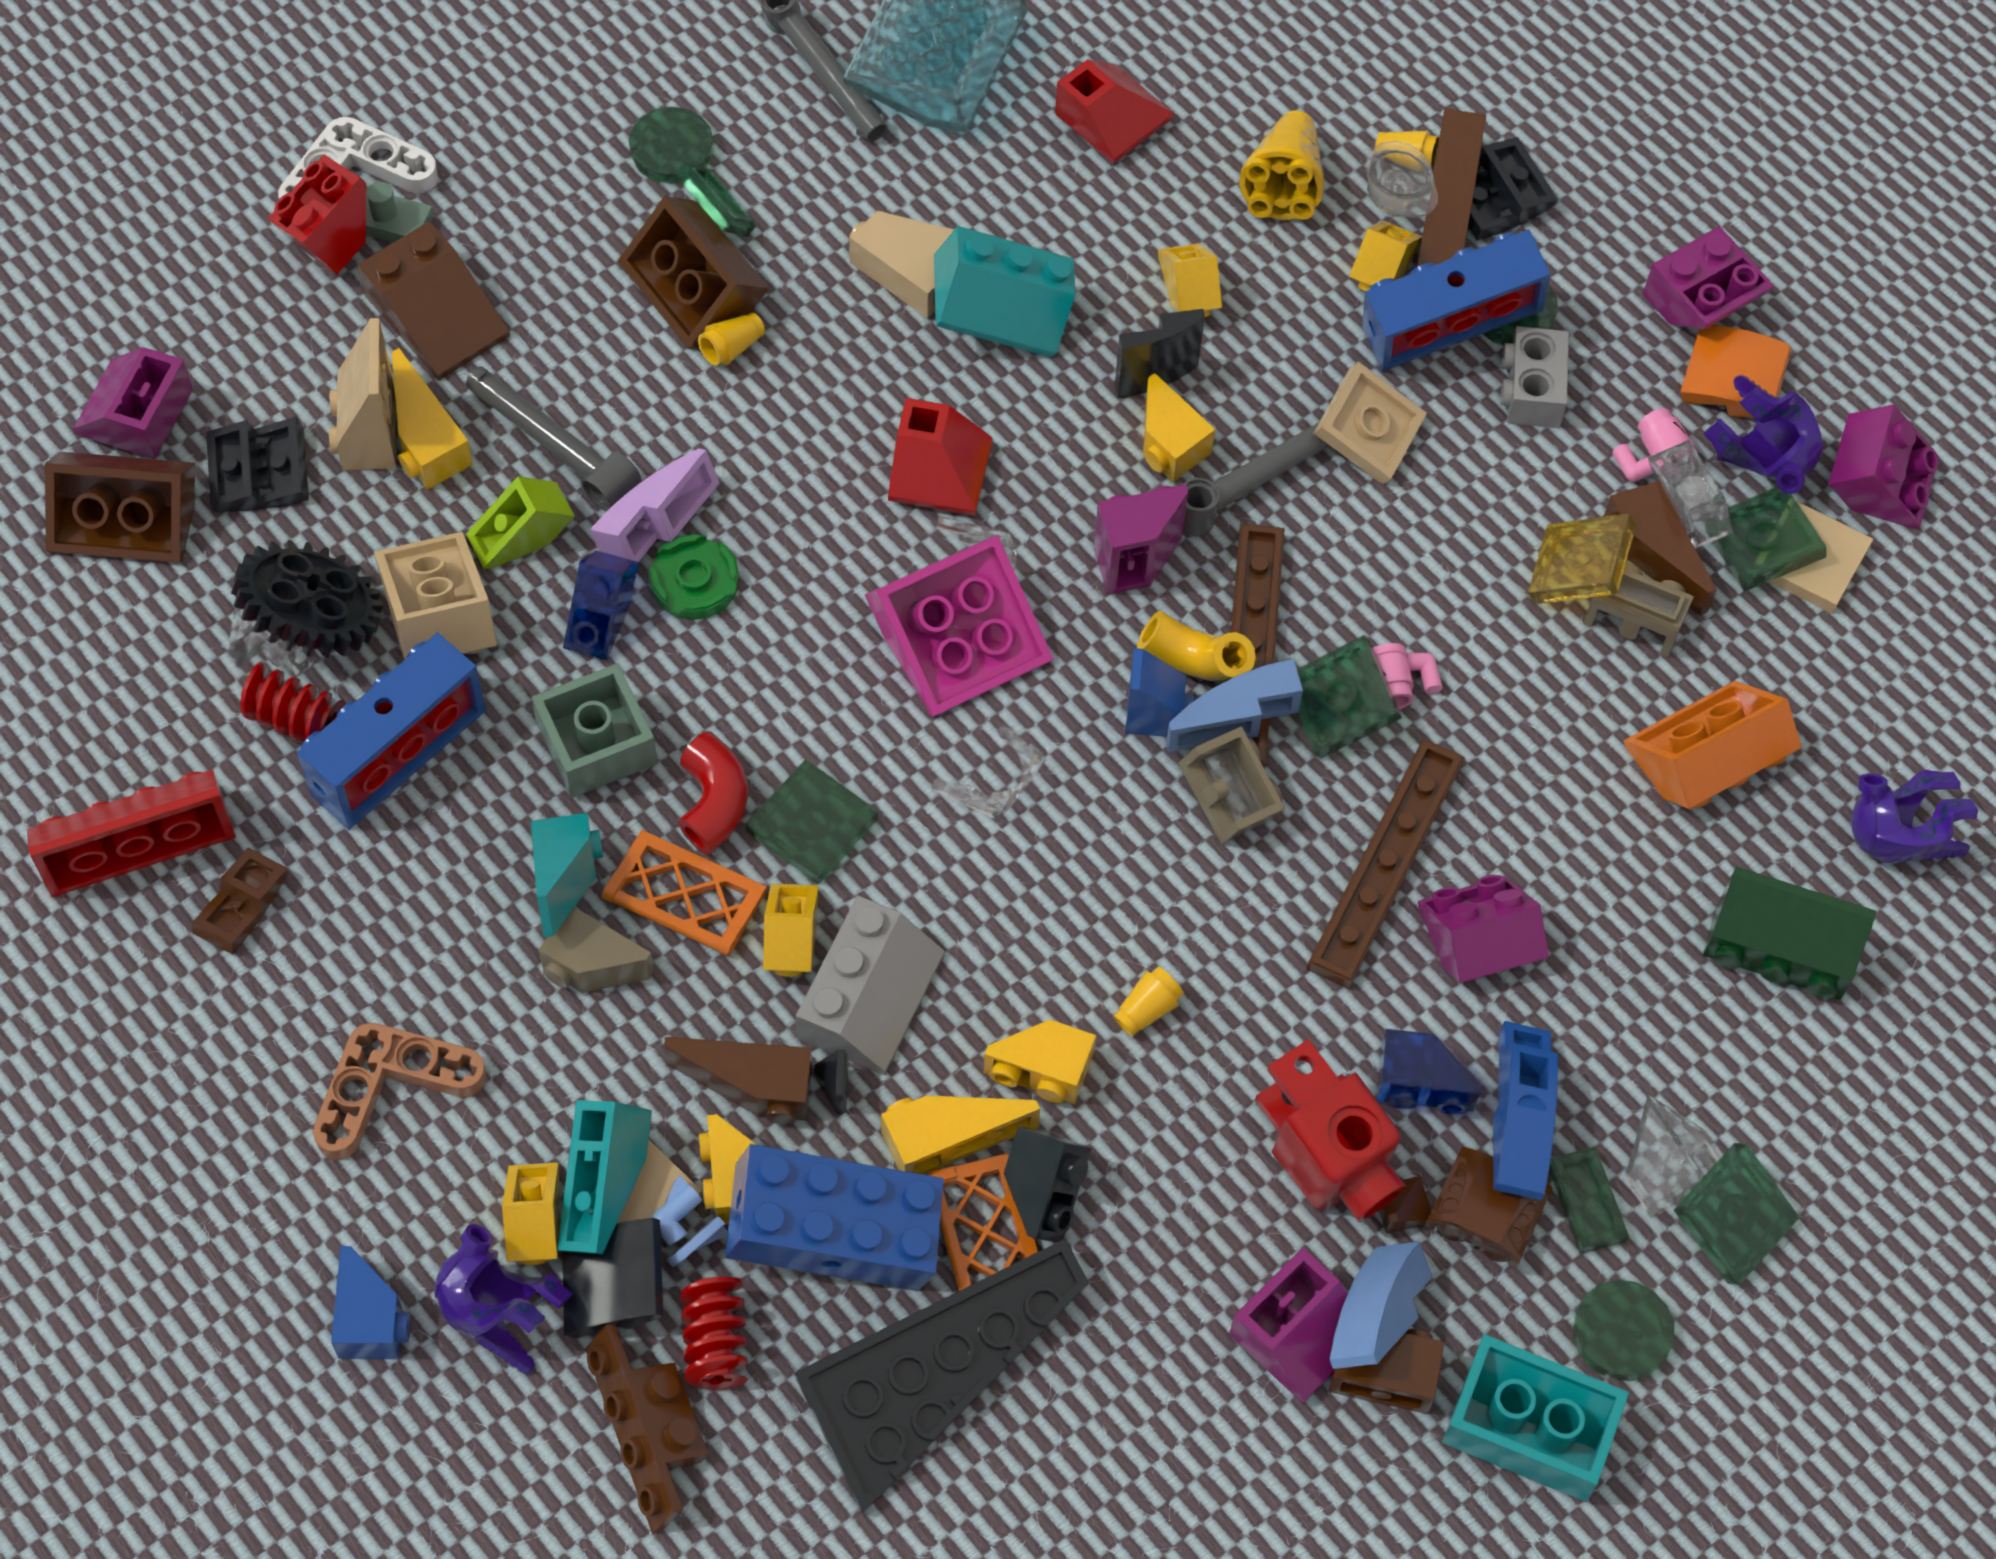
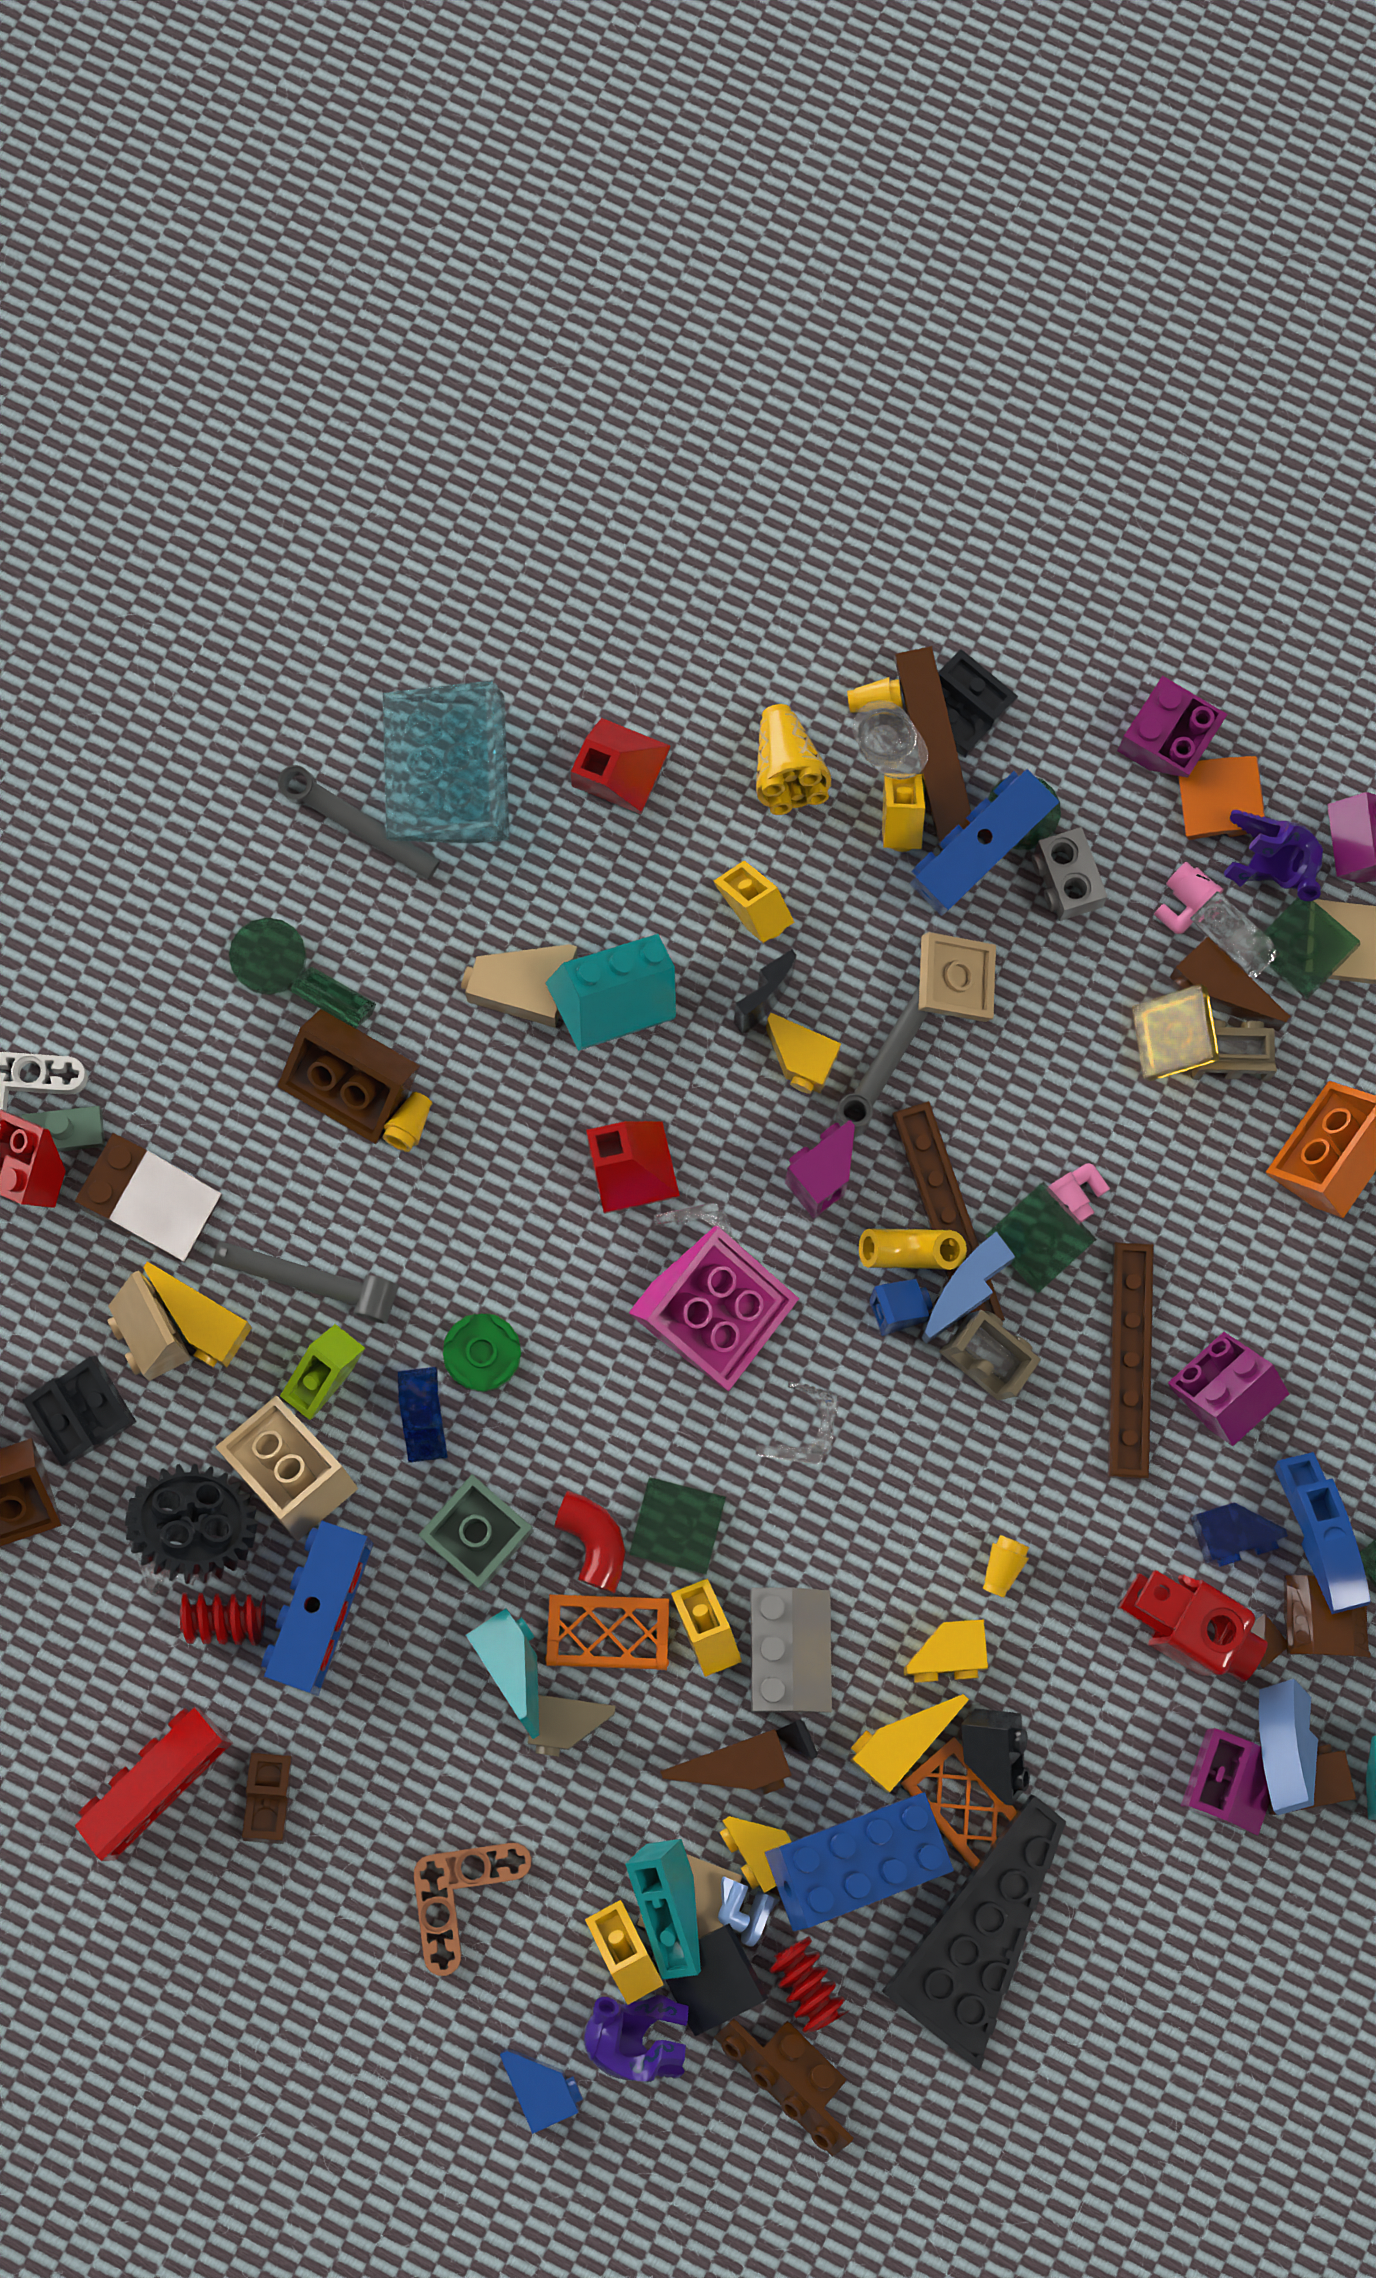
camera: 25 degrees left, 15 degrees up
(656, 507) = (426, 1311): lavender slope -> none

